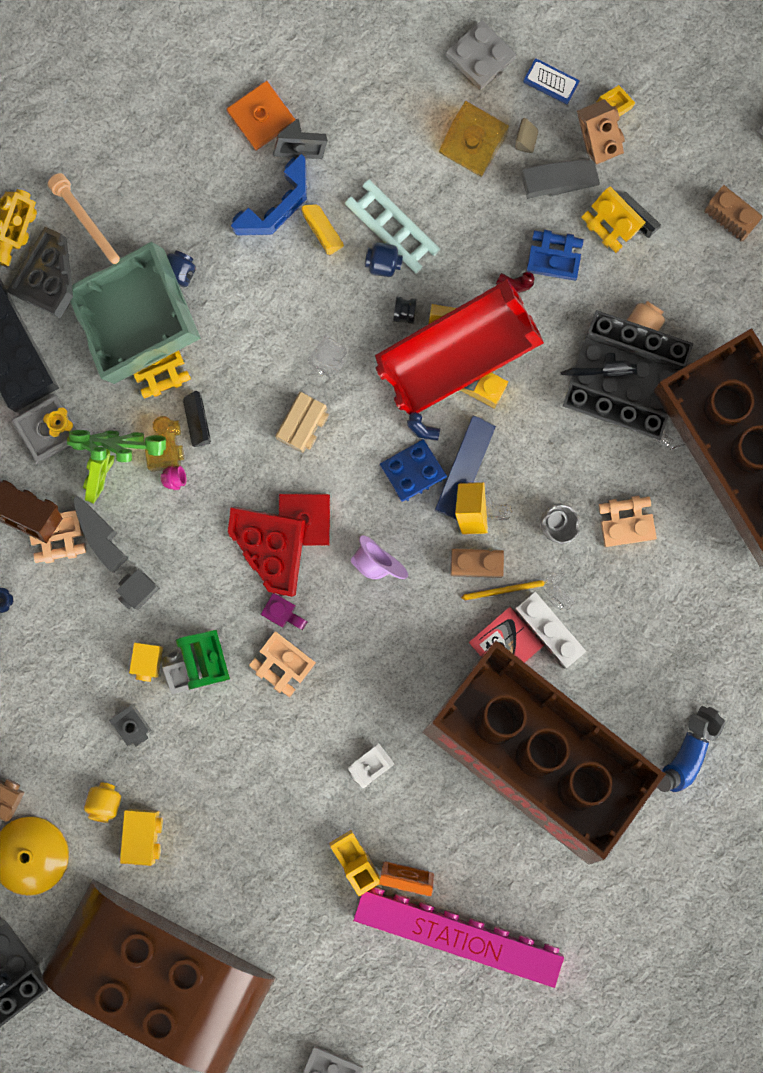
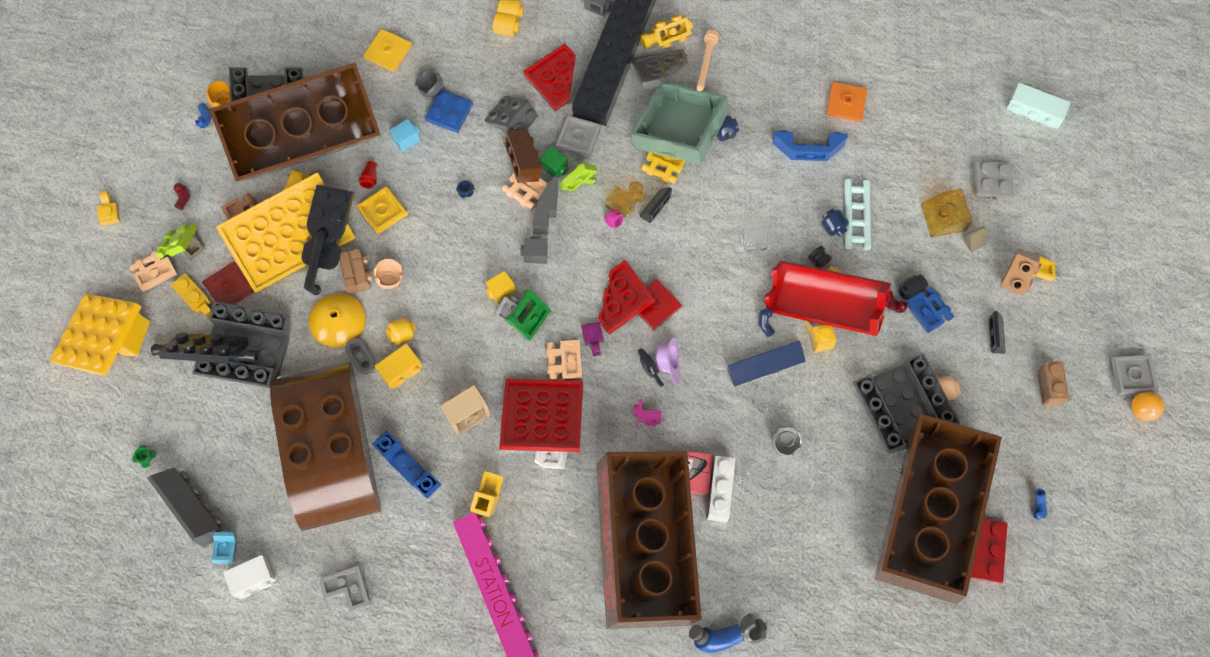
camera: 40 degrees right, 15 degrees down
(28, 763) = (388, 273): none -> light nougat hair
(50, 420) = (587, 131): yellow plate -> none
(55, 482) = (554, 162): none -> green brick
(94, 866) = (361, 357): none -> dark grey plate
(112, 441) = (603, 171): bright green plant -> none
(127, 716) = (457, 317): dark grey brick -> none
(248, 812) = (464, 409): none -> tan brick
(253, 915) = (406, 465): none -> blue slope
(294, 142) = (849, 124): dark grey slope -> none
(301, 423) = (706, 257): tan brick -> none
(321, 739) = (541, 415): none -> red plate
(322, 228) = (820, 179): yellow slope -> none
(366, 586) = (649, 366): none -> black hand
(407, 878) = (503, 530): orange plate -> none
(413, 470) = (737, 337): blue hinge -> none
(419, 634) = (650, 418): none -> dark pink bracket
(471, 508) = (747, 385): yellow slope -> none
(477, 563) = (720, 415): medium nougat brick -> none
(502, 590) = (719, 445): yellow axle -> none
(517, 249) = (912, 286): none -> black brick
(551, 81) = (1019, 227): tile -> none
(559, 178) = (973, 275): dark grey slope -> none
(610, 368) = (899, 390): black piece -> none
(617, 214) = (986, 321): yellow plate -> none
(630, 529) = (820, 484): light nougat plate -> none

